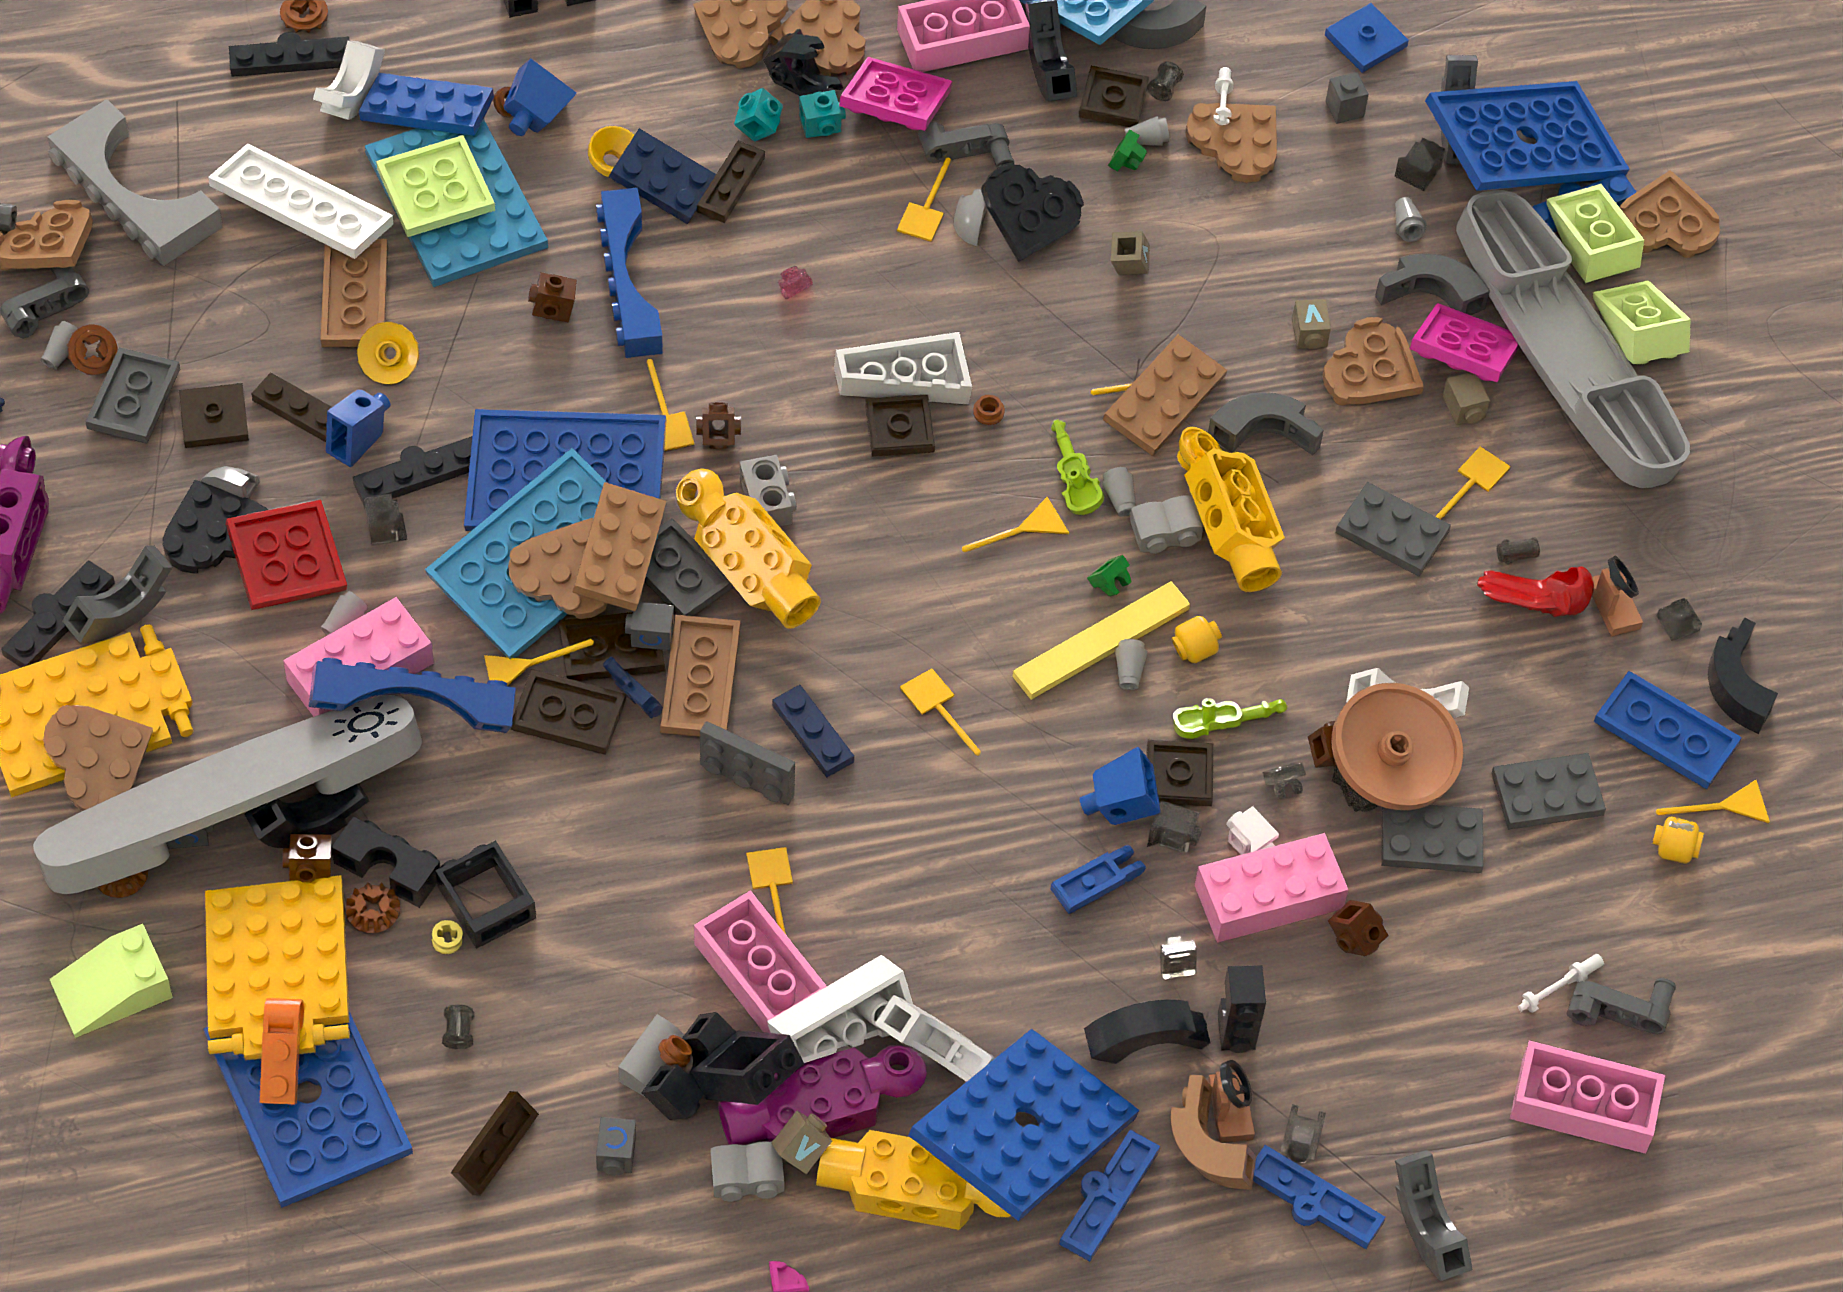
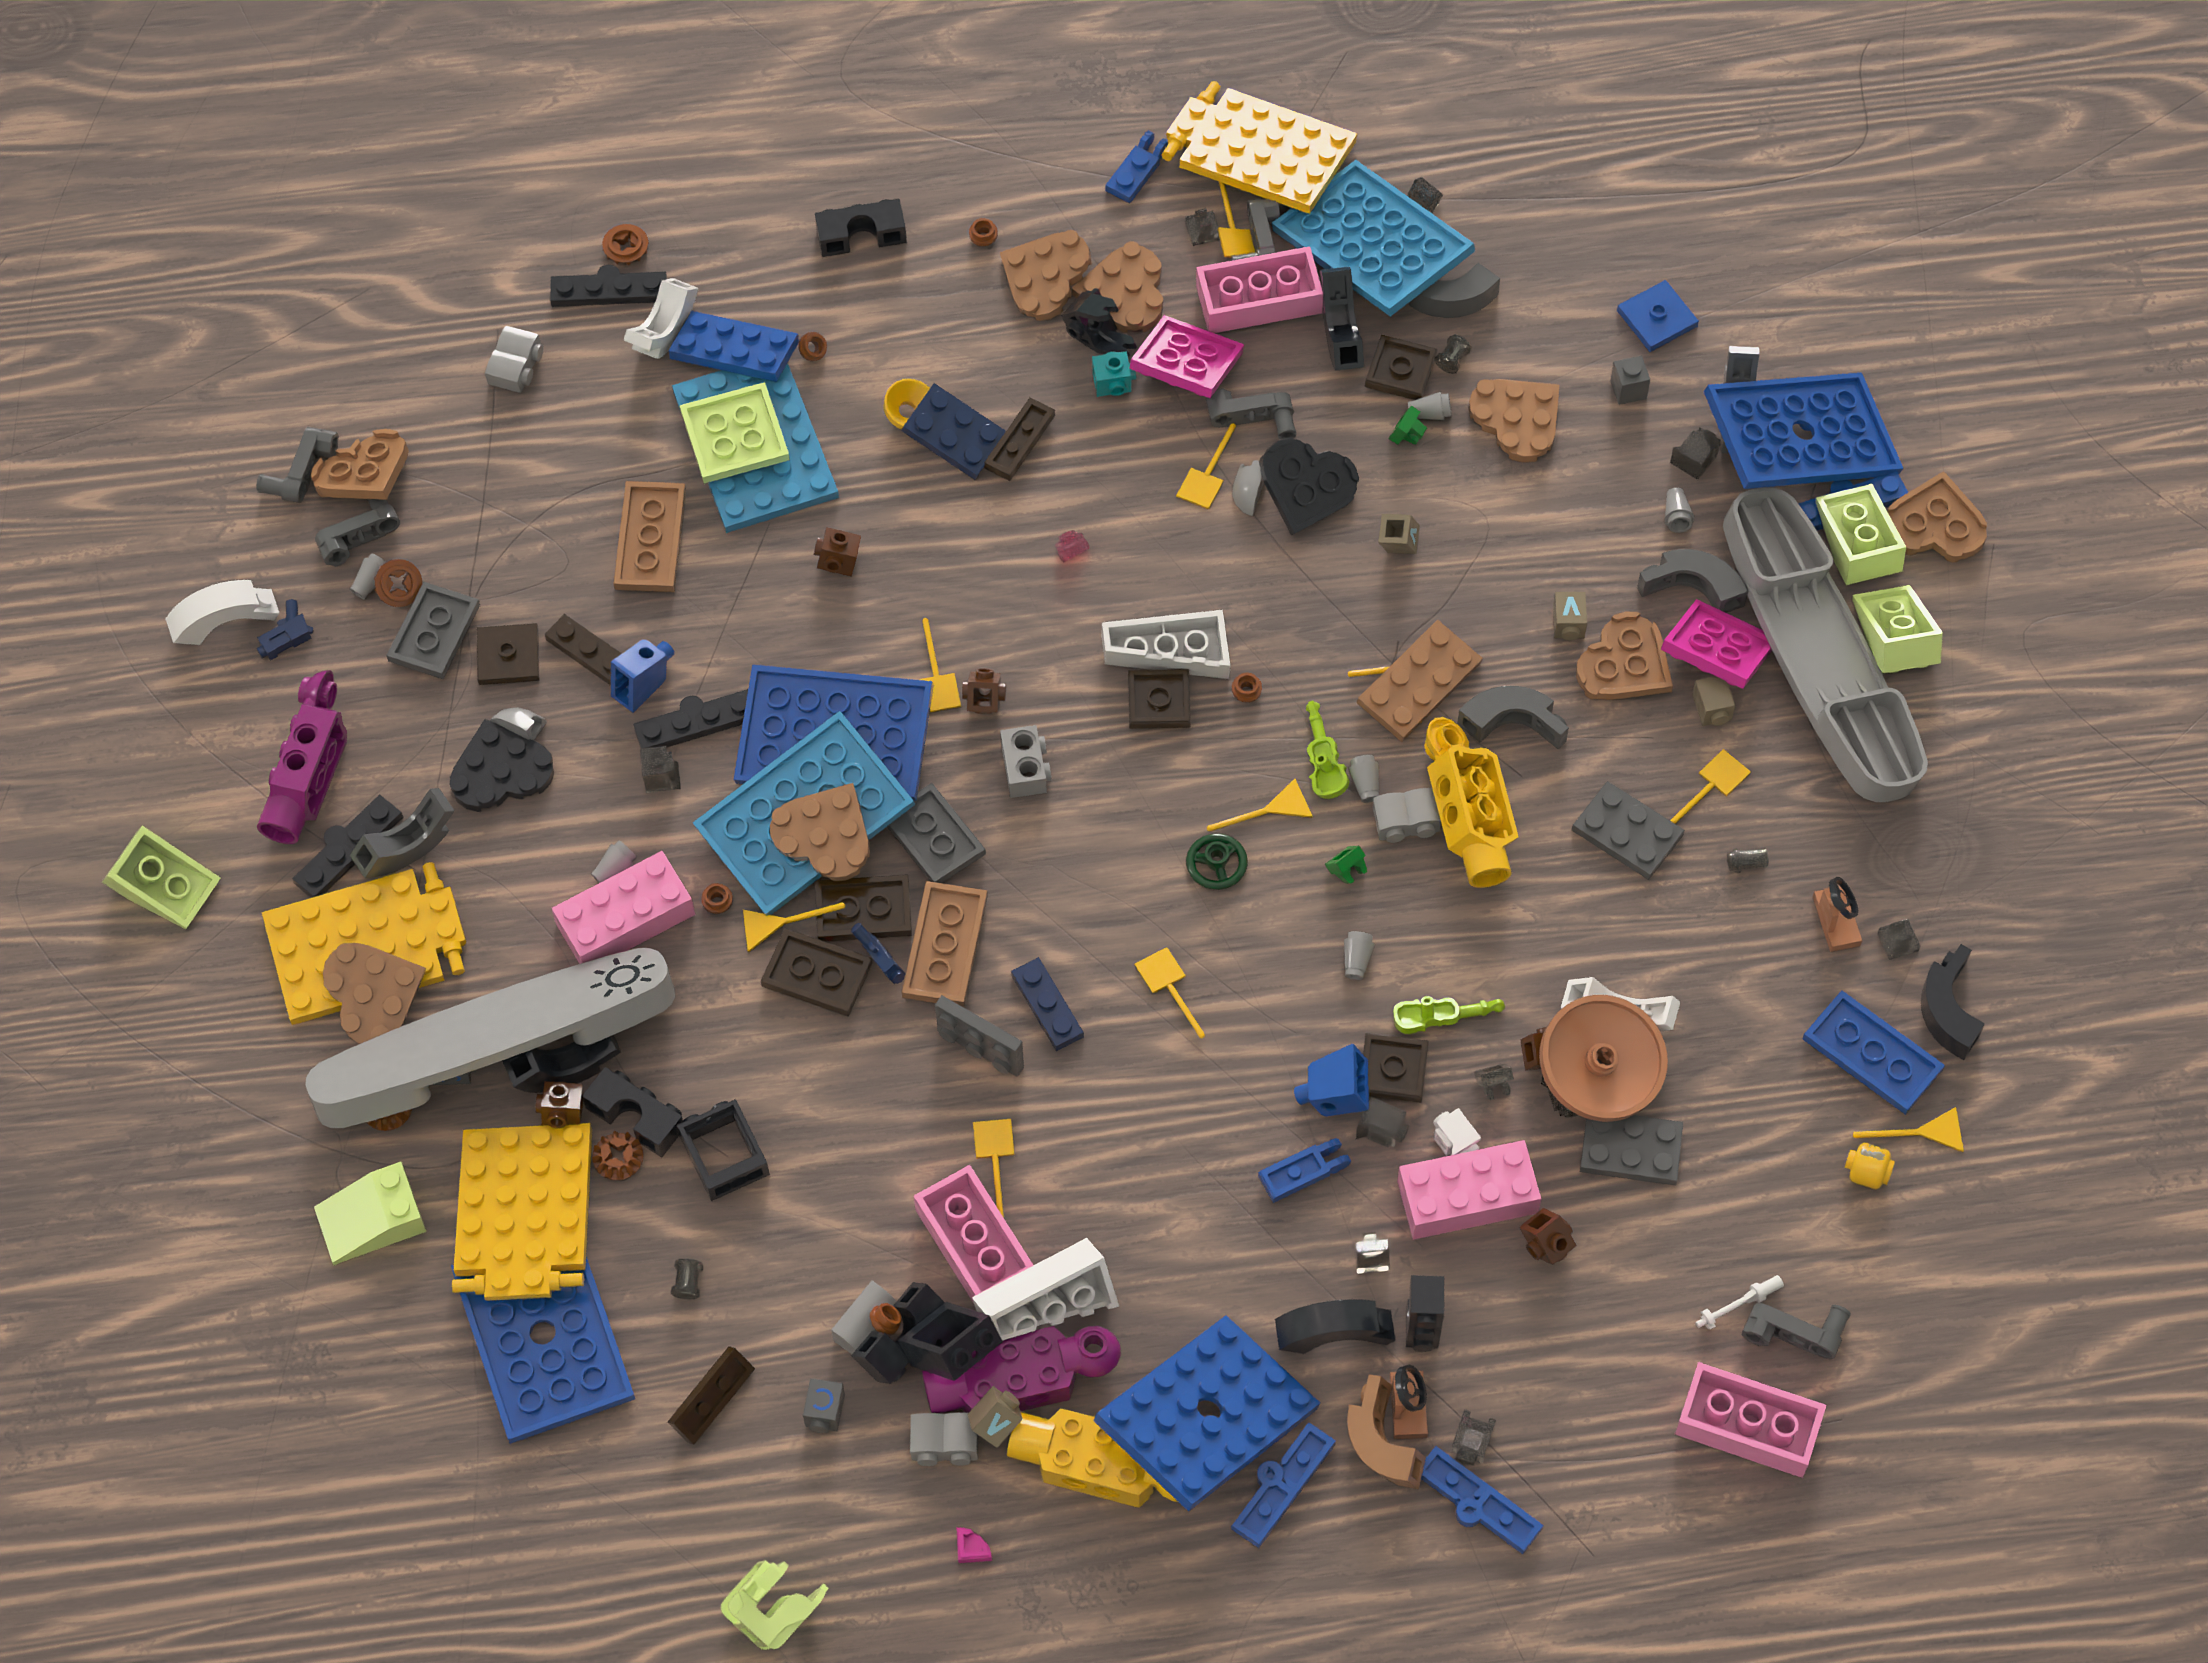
camera: 10 degrees right, 5 degrees up
(160, 226) = (473, 459): light grey arch -> none
(197, 127) = (513, 359): none -> light grey brick
(280, 1050) = (517, 1295): orange plate -> none
(286, 554) = (563, 800): red plate -> none
(301, 201) = (606, 441): white plate -> none
(373, 350) = (663, 603): yellow dish -> none
(455, 931) = (676, 1193): light yellow bush -> none
(456, 637) = (713, 891): none -> dark orange plate
(479, 704) = (734, 962): blue arch -> none
(535, 98) = (838, 346): blue torso -> none
(619, 546) = (875, 814): medium nougat plate -> none
(639, 321) = (911, 479): blue arch -> none
(651, 626) = (900, 892): dark grey brick -> none
(749, 548) = (1000, 820): yellow brick -> none
(758, 114) = (1052, 371): teal brick -> none
(932, 1038) = (1121, 1314): white arch -> none
(974, 566) = (1218, 846): none -> dark green piece
(1100, 640) = (1331, 928): light yellow tile -> none
(1196, 639) = (1423, 934): yellow head -> none
(1224, 86) = (1509, 361): white piece -> none
(1426, 1218) = (1583, 1529): dark grey arch -> none
(1548, 791) = (1750, 1107): dark grey plate -> none
(1558, 594) = (1781, 908): red hair -> none

